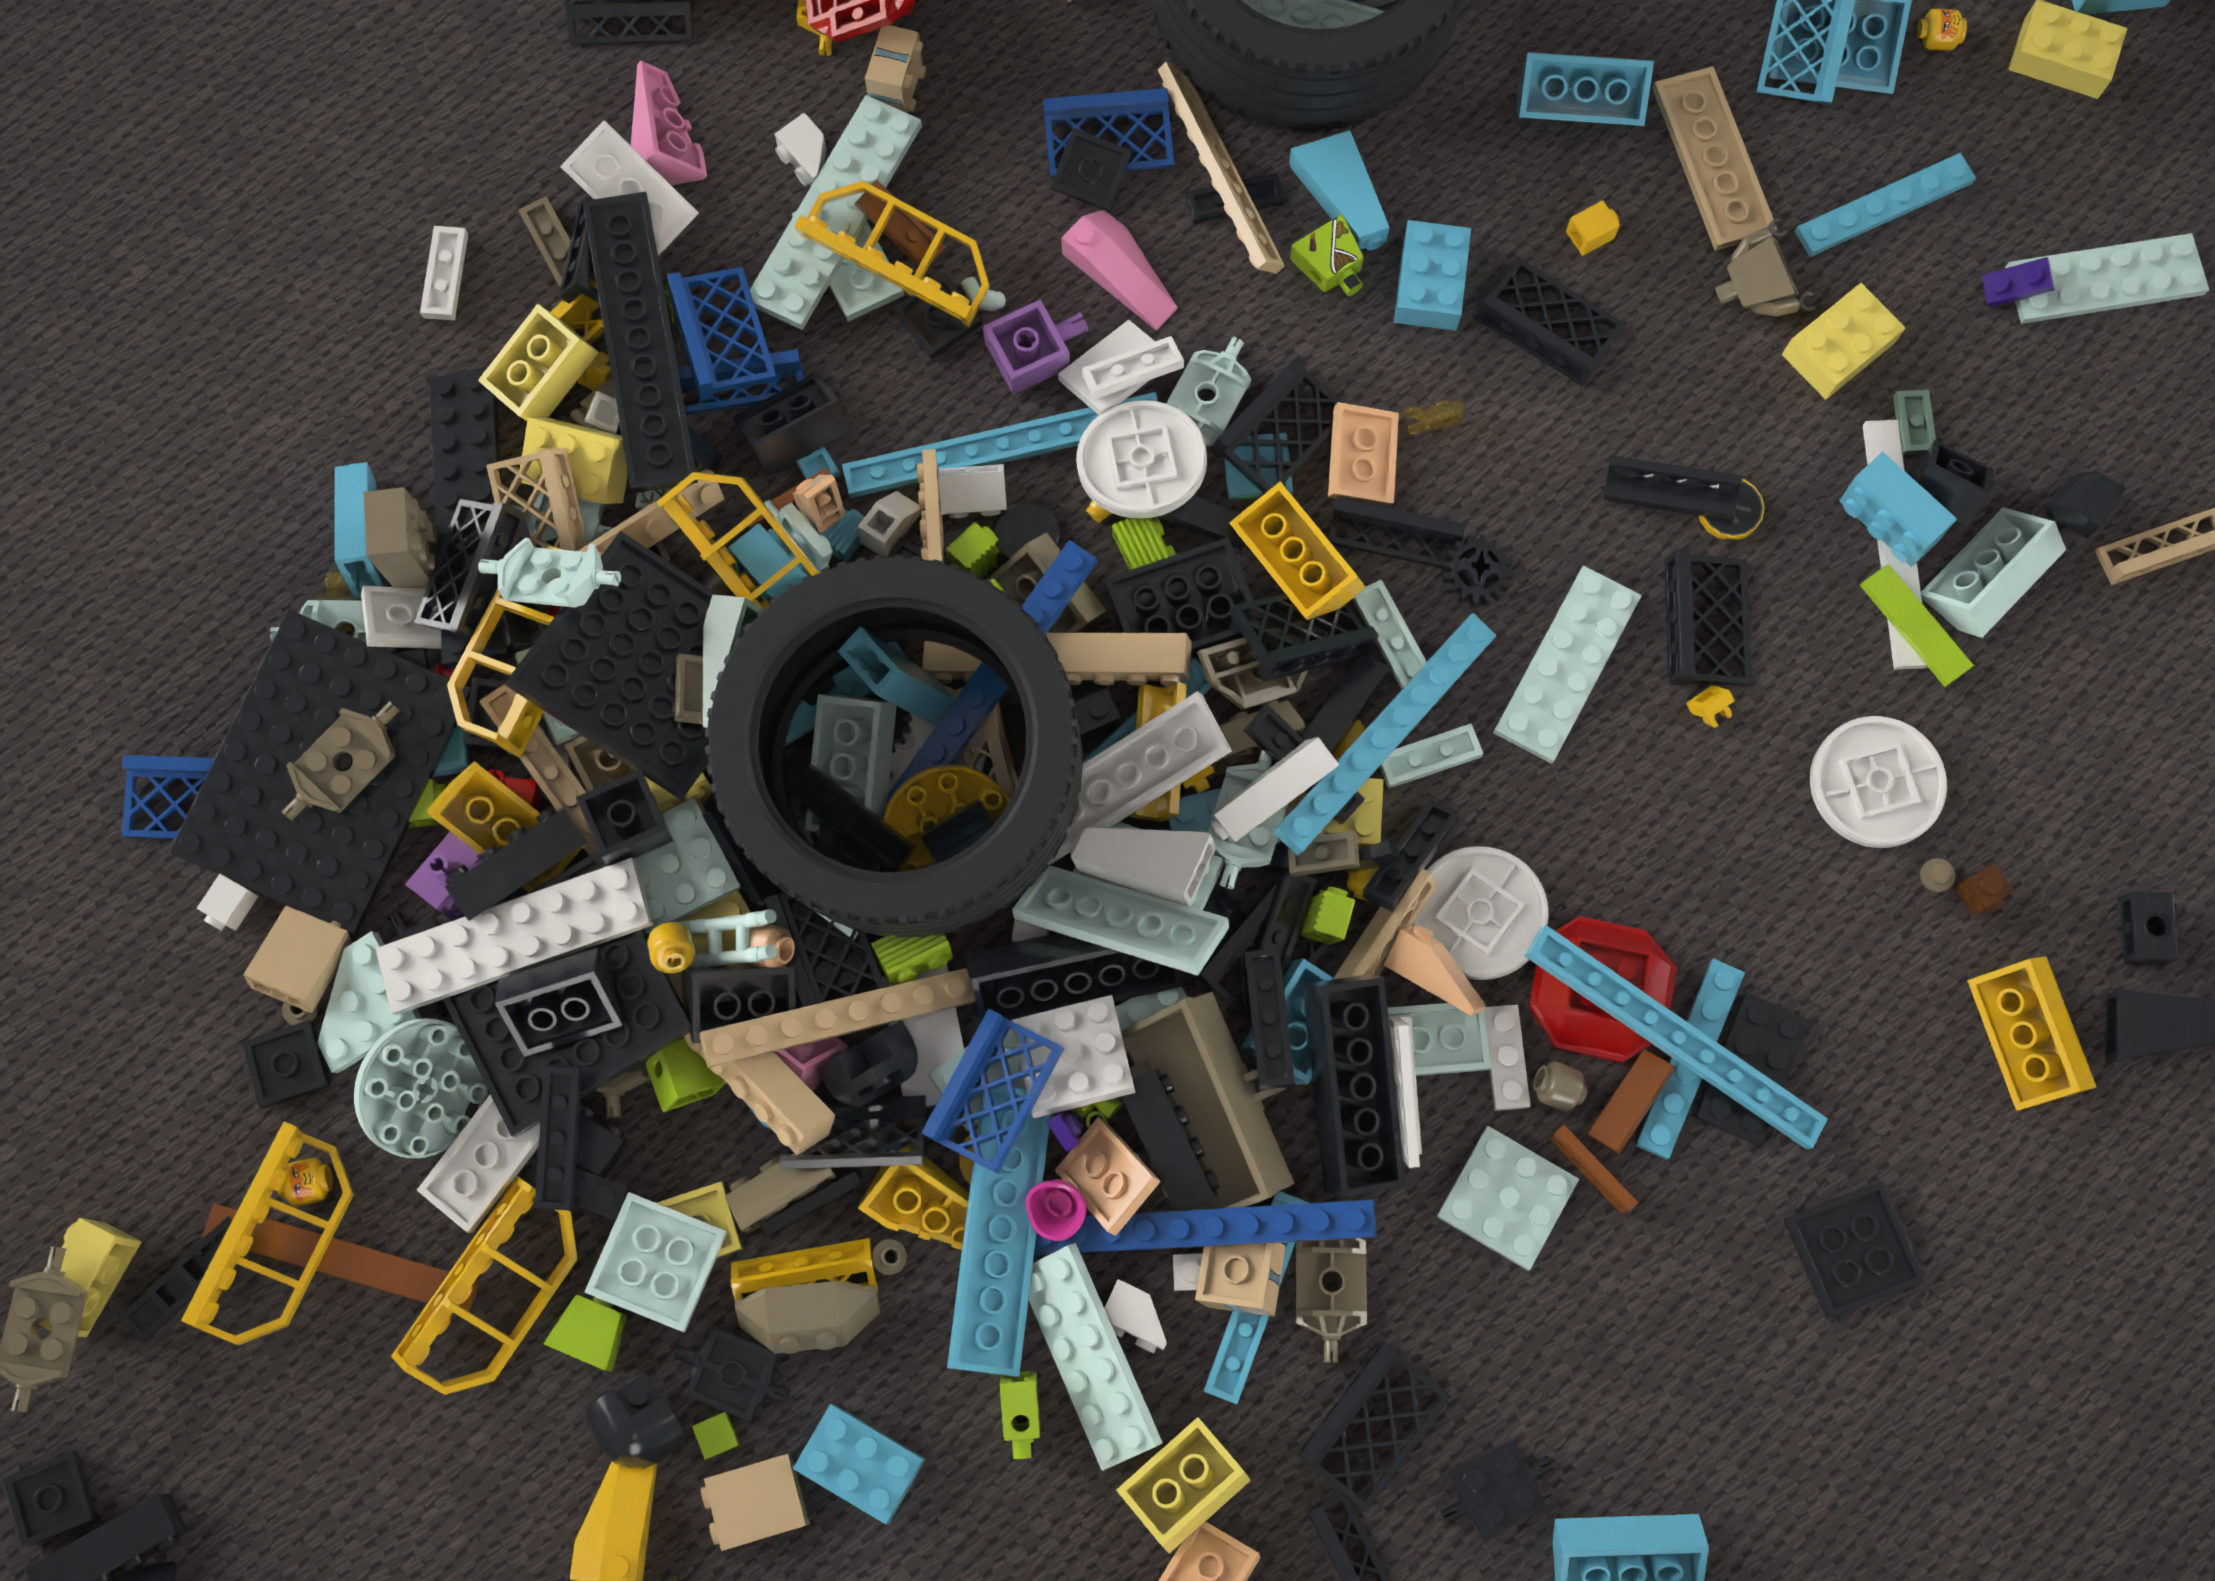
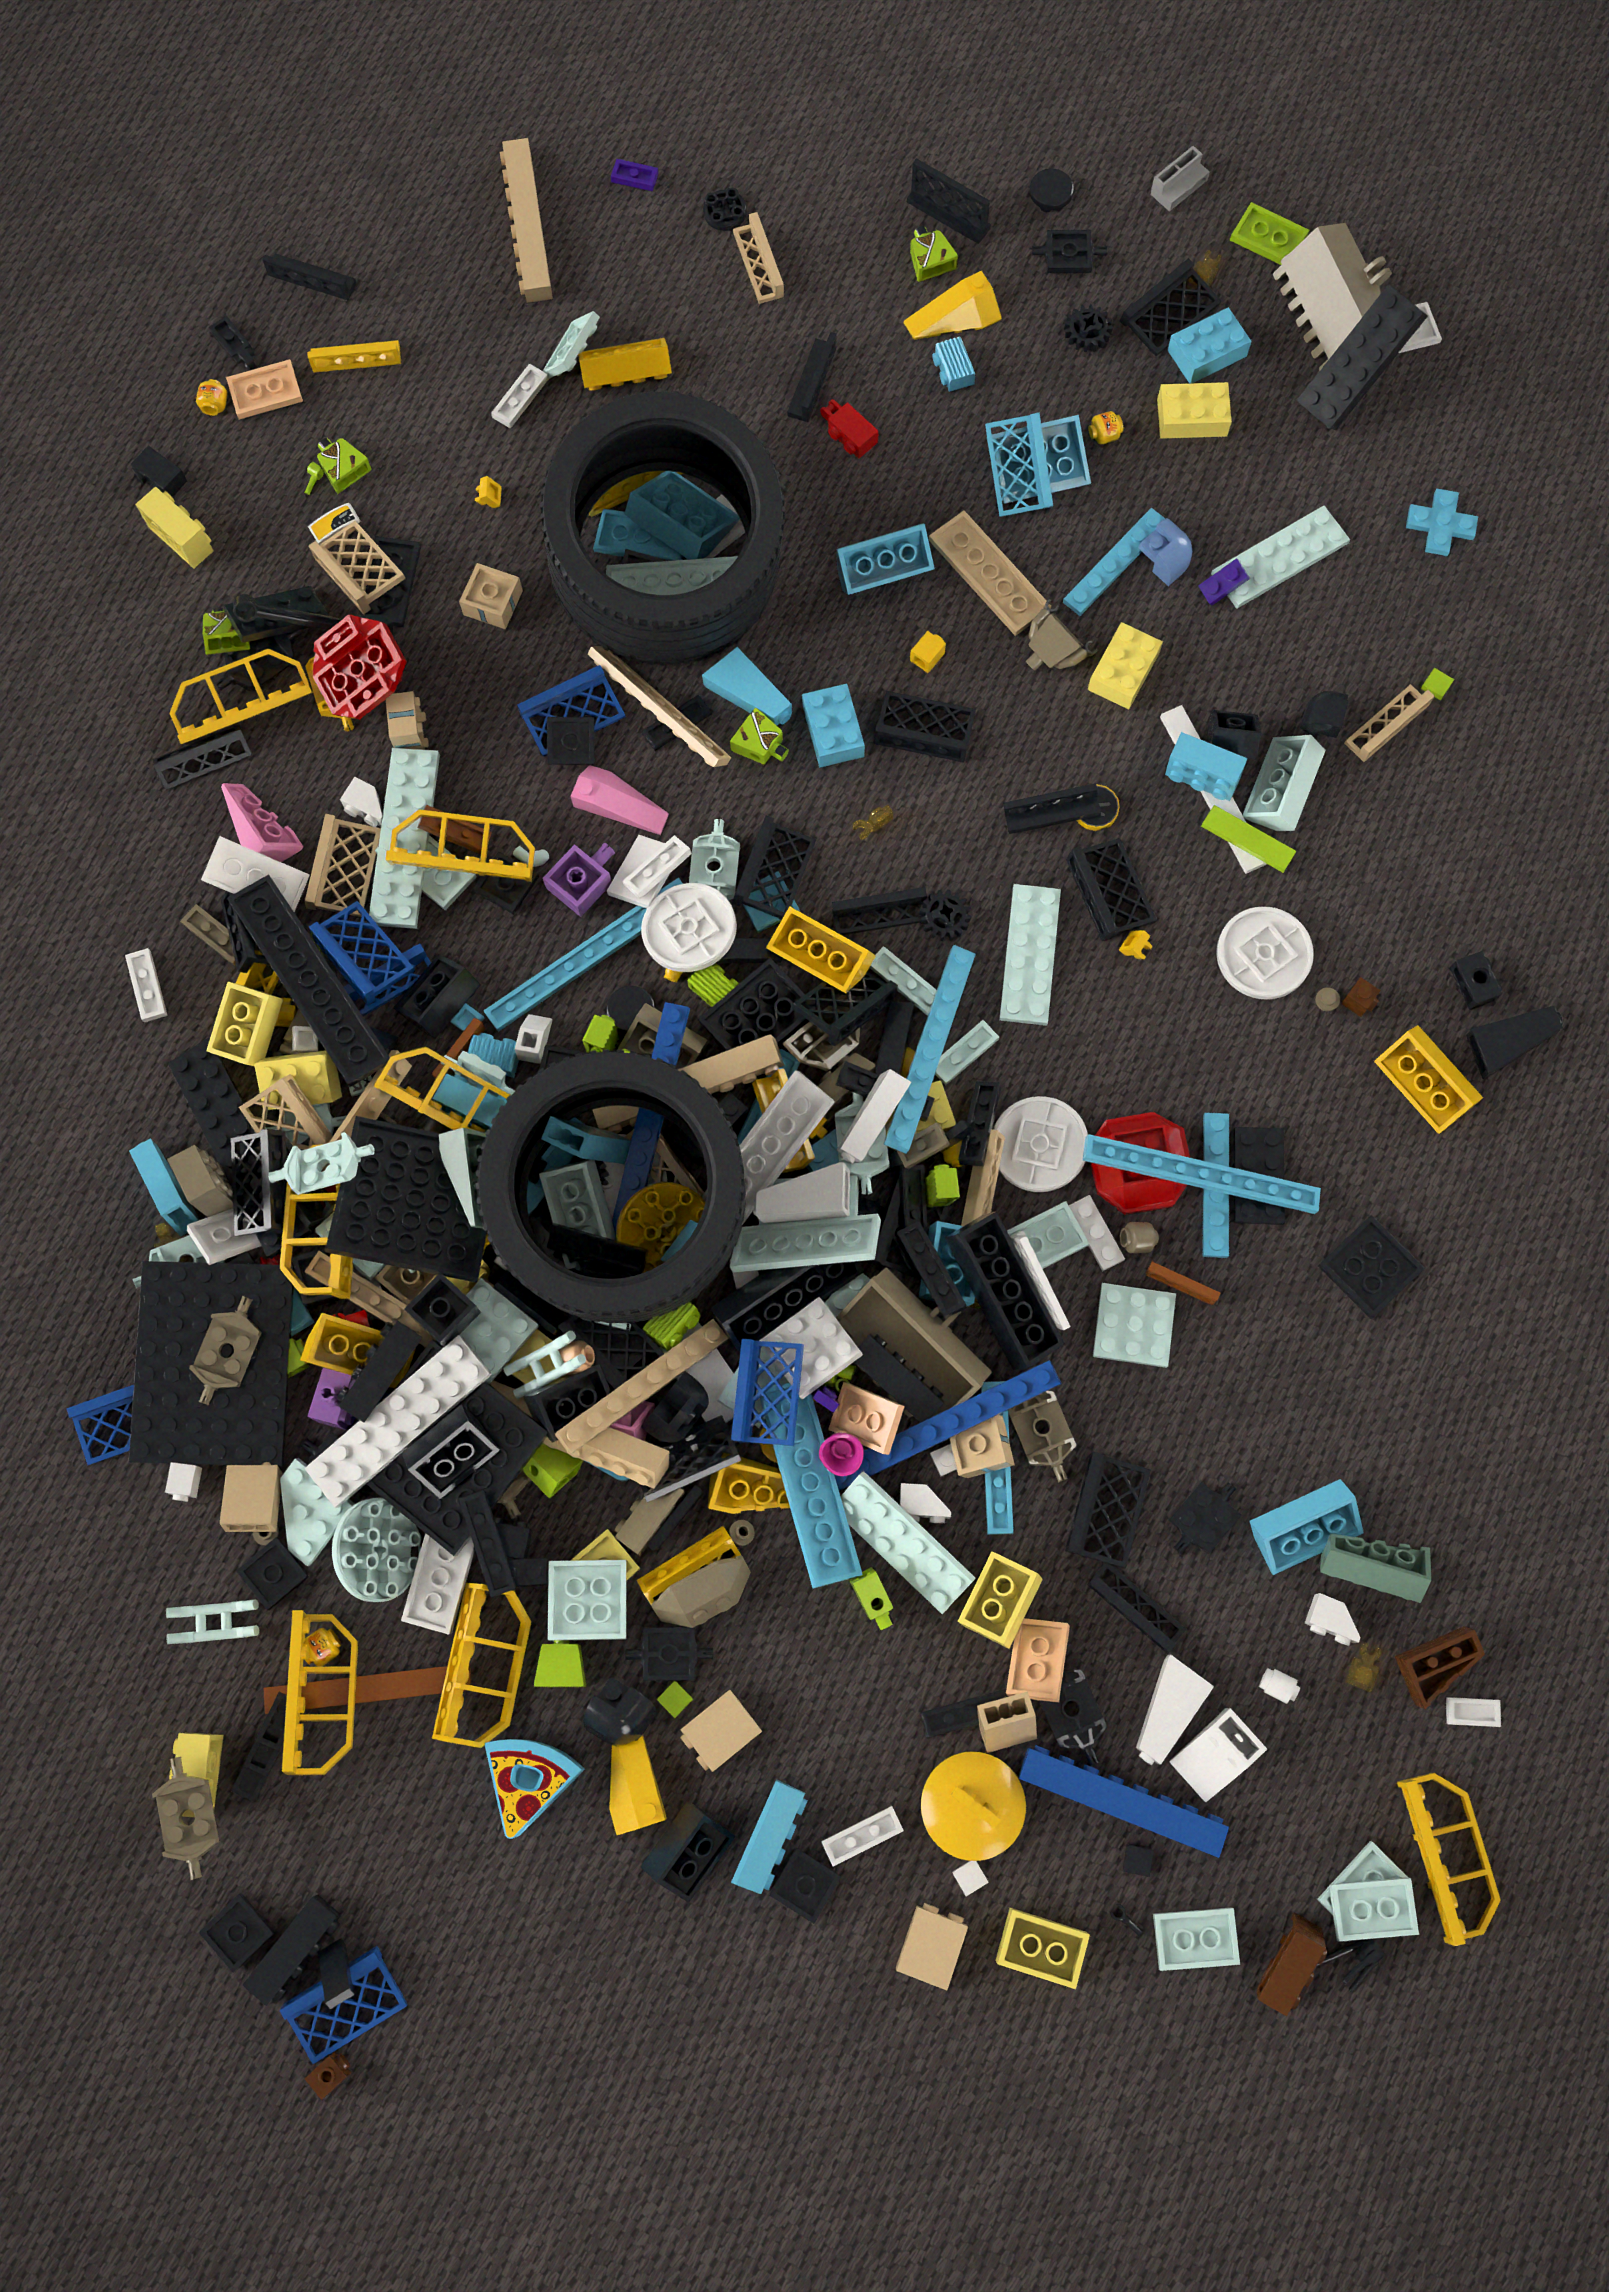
camera: 20 degrees left, 0 degrees up
(178, 1076) = (200, 1613): none -> light aqua piece
(485, 1460) = (527, 1780): none -> piece
(671, 947) = (510, 1384): yellow head -> none
(689, 689) = (450, 1204): dark tan tile -> none
(726, 198) = (322, 862): none -> tan fence
(820, 502) = (482, 1041): light nougat slope -> none
(859, 1463) = (779, 1676): medium azure brick -> none
(930, 507) = (560, 1018): tan plate -> none
(957, 831) = (672, 1228): black plate -> none
(972, 490) = (581, 993): white brick -> none
(1363, 454) = (837, 866): light nougat plate -> none
(1431, 966) = (1022, 1192): light nougat slope -> none
(1631, 1101) = (1189, 1228): dark orange tile -> none
(1914, 421) = (1193, 701): sand green plate -> none
(1961, 215) = (1169, 551): none -> medium blue brick

